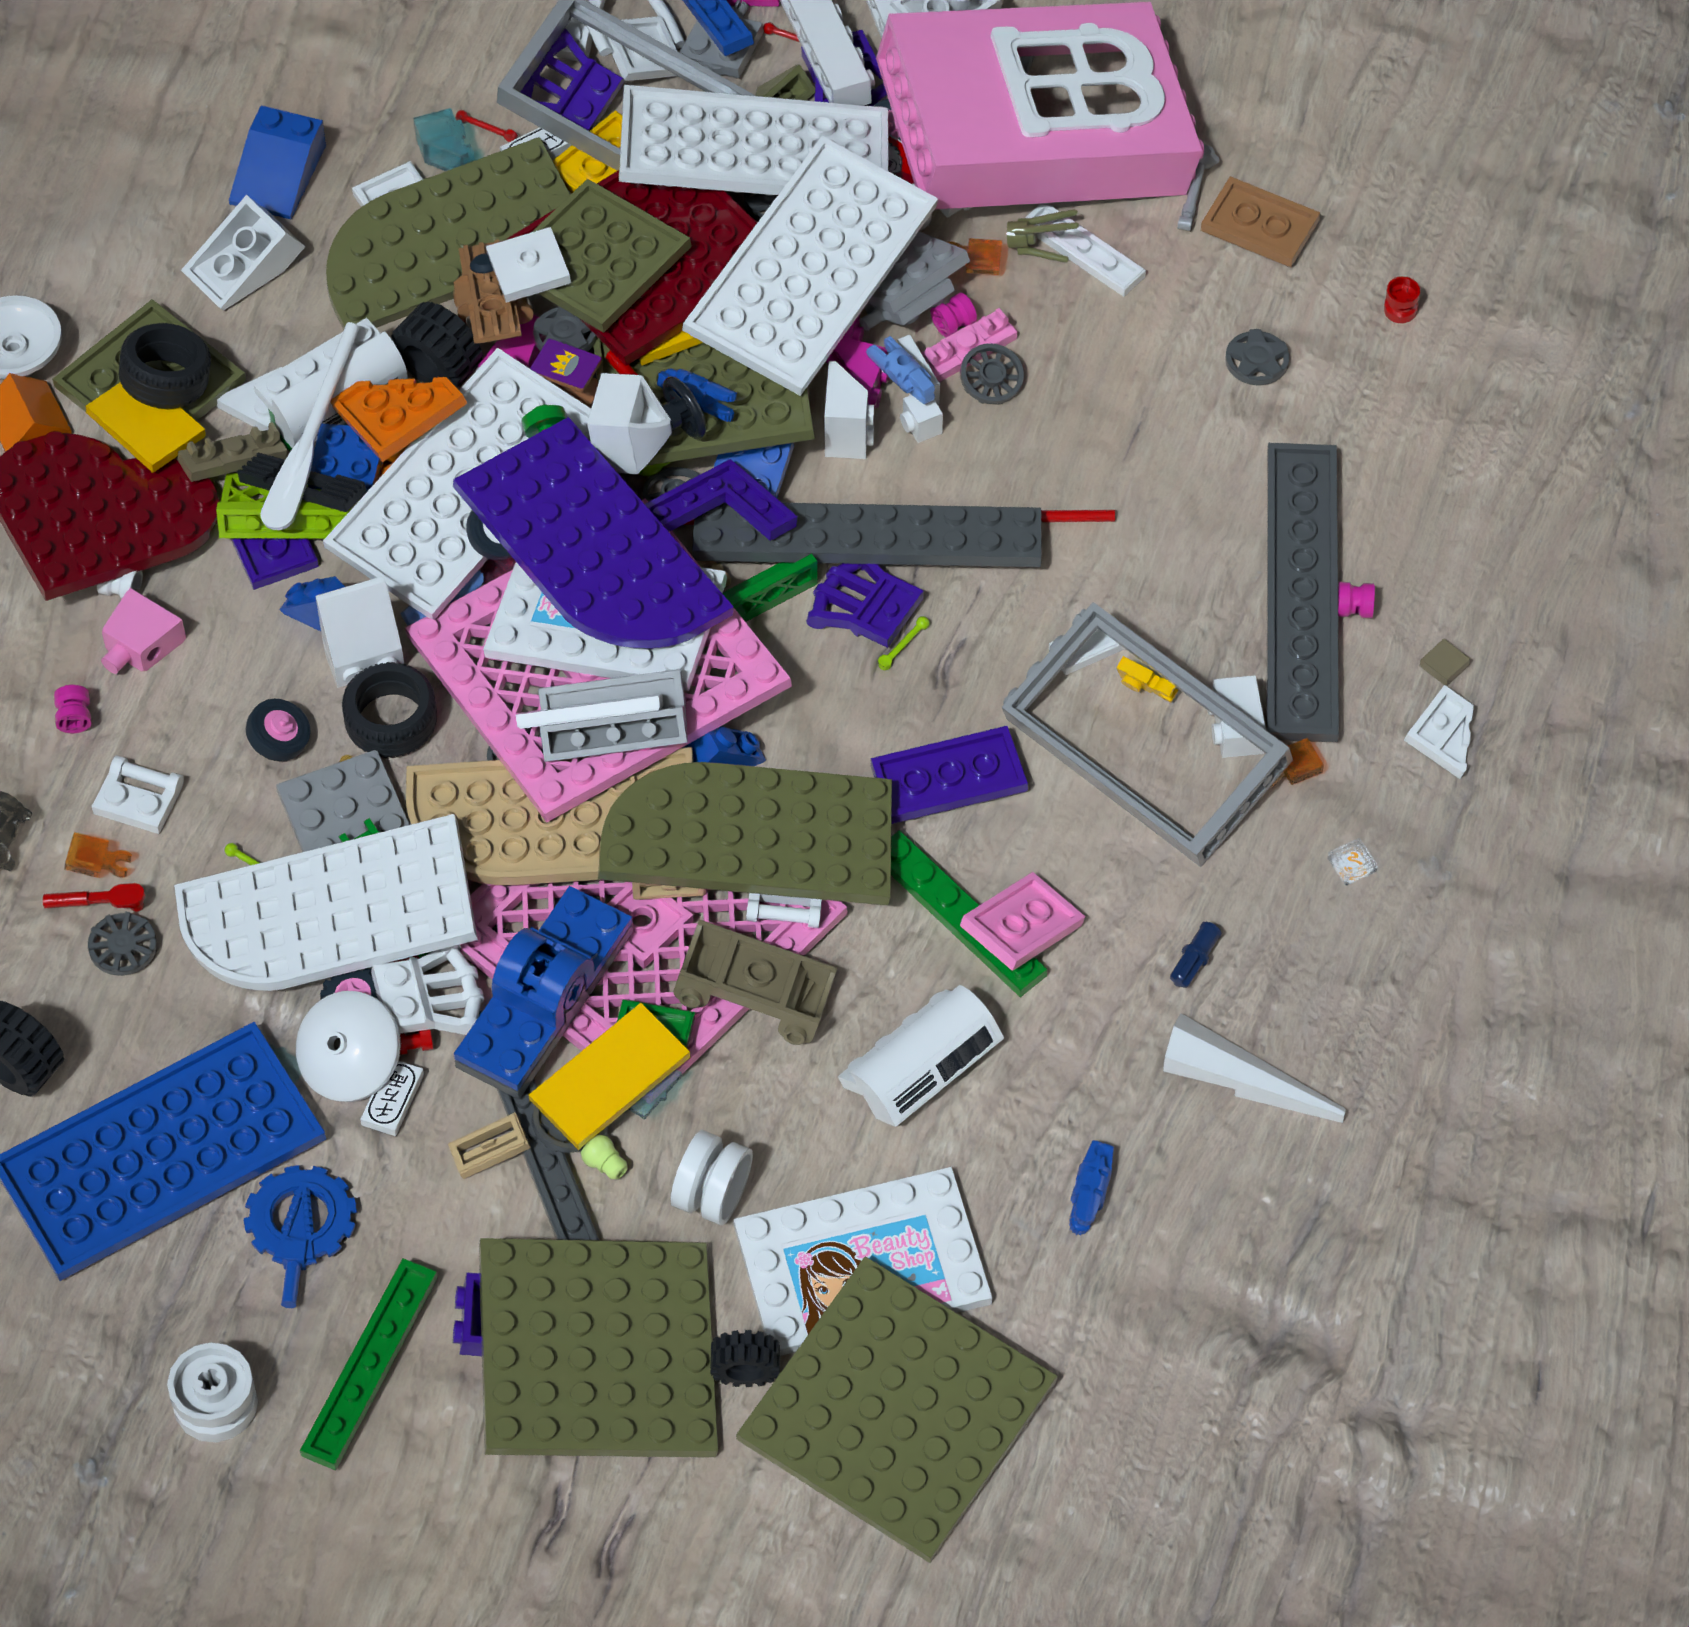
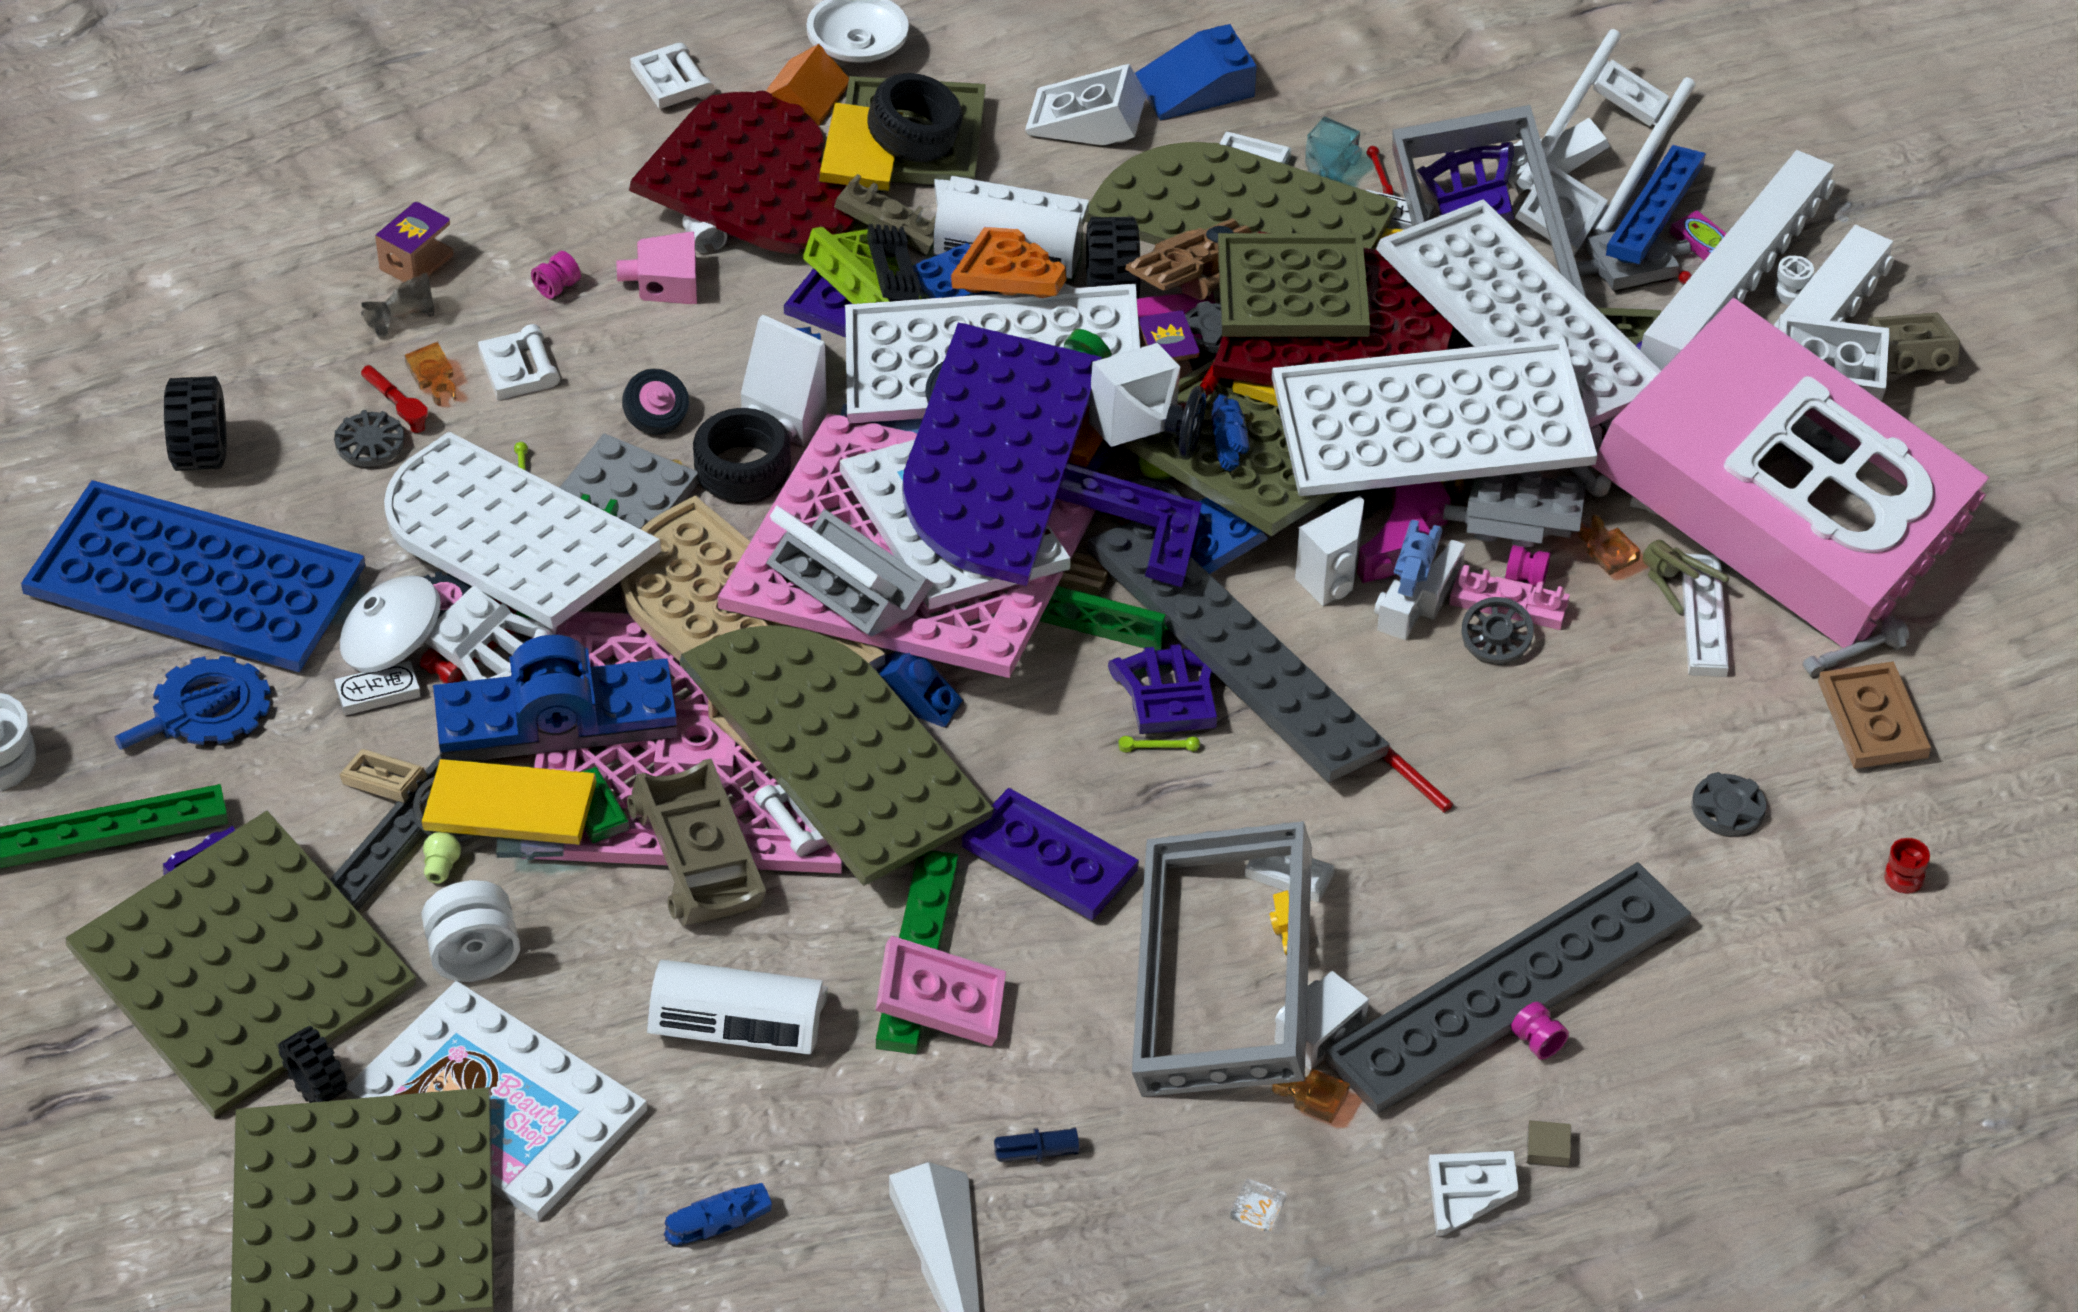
camera: 50 degrees right, 10 degrees down
(290, 484) = (880, 251): white piece -> none
(528, 264) = (1230, 247): white plate -> none

